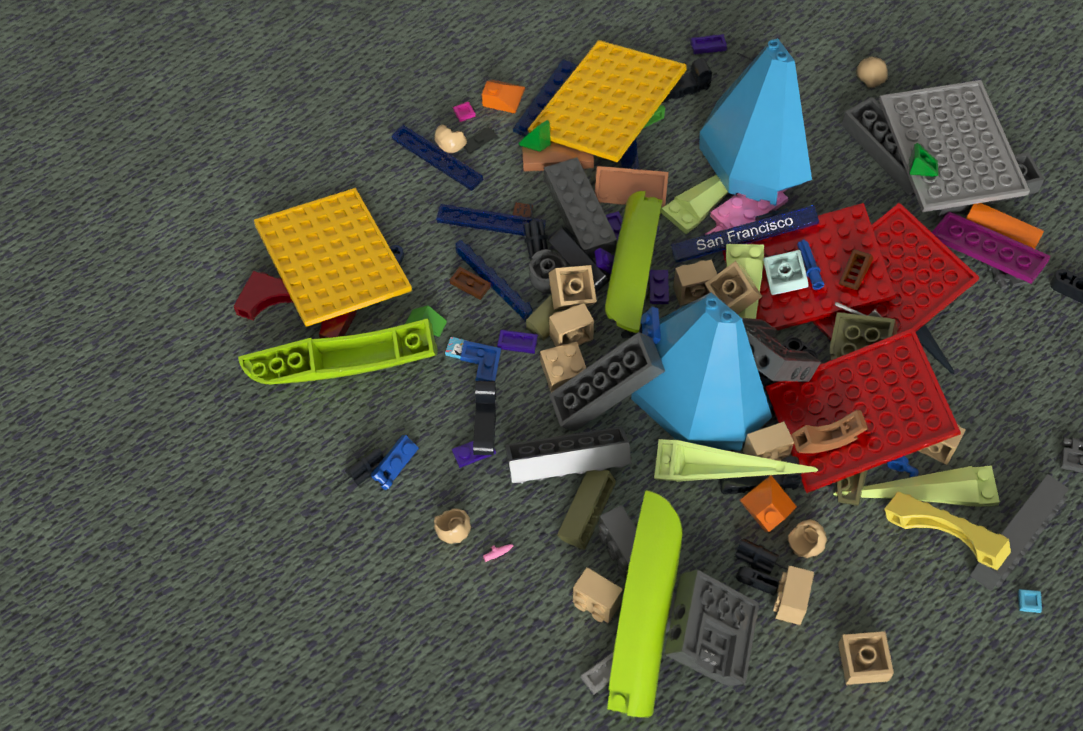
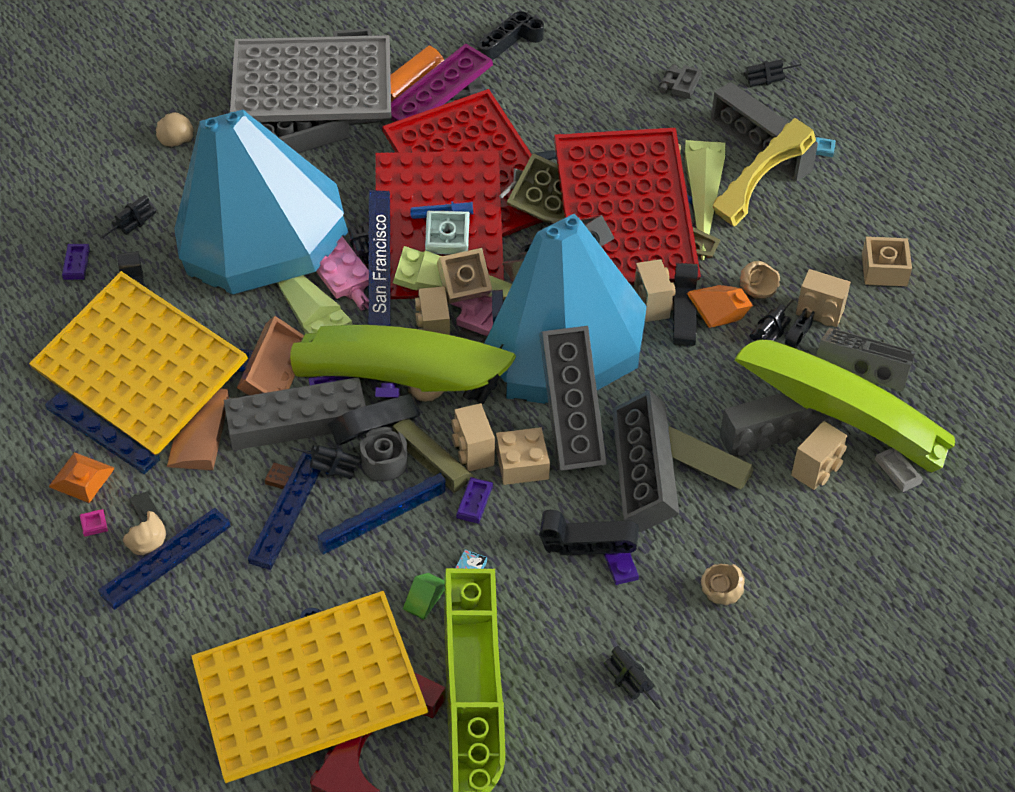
camera: 85 degrees left, 10 degrees down
(394, 461) = (629, 640): blue plate -> none
(470, 283) = (378, 540): reddish brown plate -> none
(483, 355) = (495, 532): blue plate -> none
(496, 552) = (752, 552): bright pink helmet -> none
(538, 138) = (175, 440): green slope -> none
(572, 287) = (426, 421): tan brick -> none
(651, 324) = (526, 342): blue plate -> none
(691, 462) = (663, 355): yellowish green plate -> none
(832, 436) = (654, 232): medium nougat arch -> none
(856, 254) = (462, 163): reddish brown slope -> none
(922, 162) = (337, 99): green slope -> none

